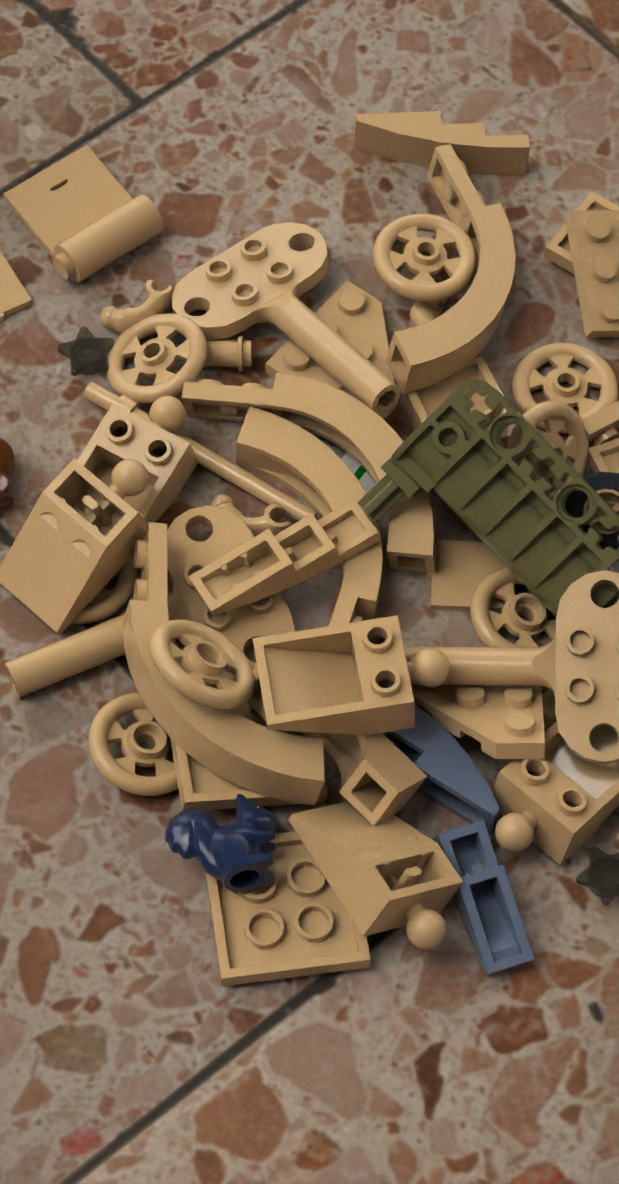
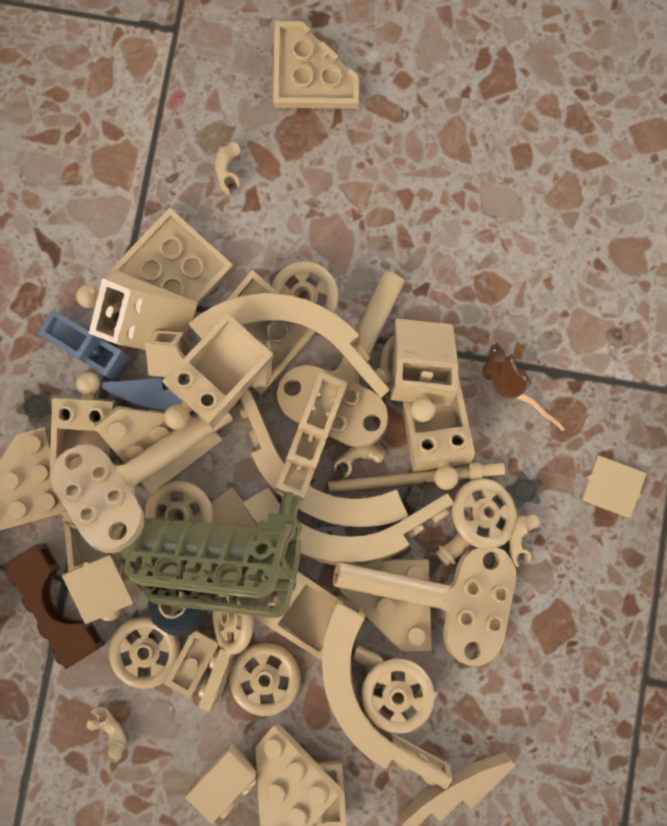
camera: 140 degrees right, 25 degrees up
(83, 214) = (605, 575): tan door -> none
(93, 993) = (224, 158): none -> tan piece
(203, 662) = (310, 312): tan plate -> none
(221, 429) = (413, 497): none -> clear smoke plate
(229, 853) = (212, 260): dark blue animal -> none

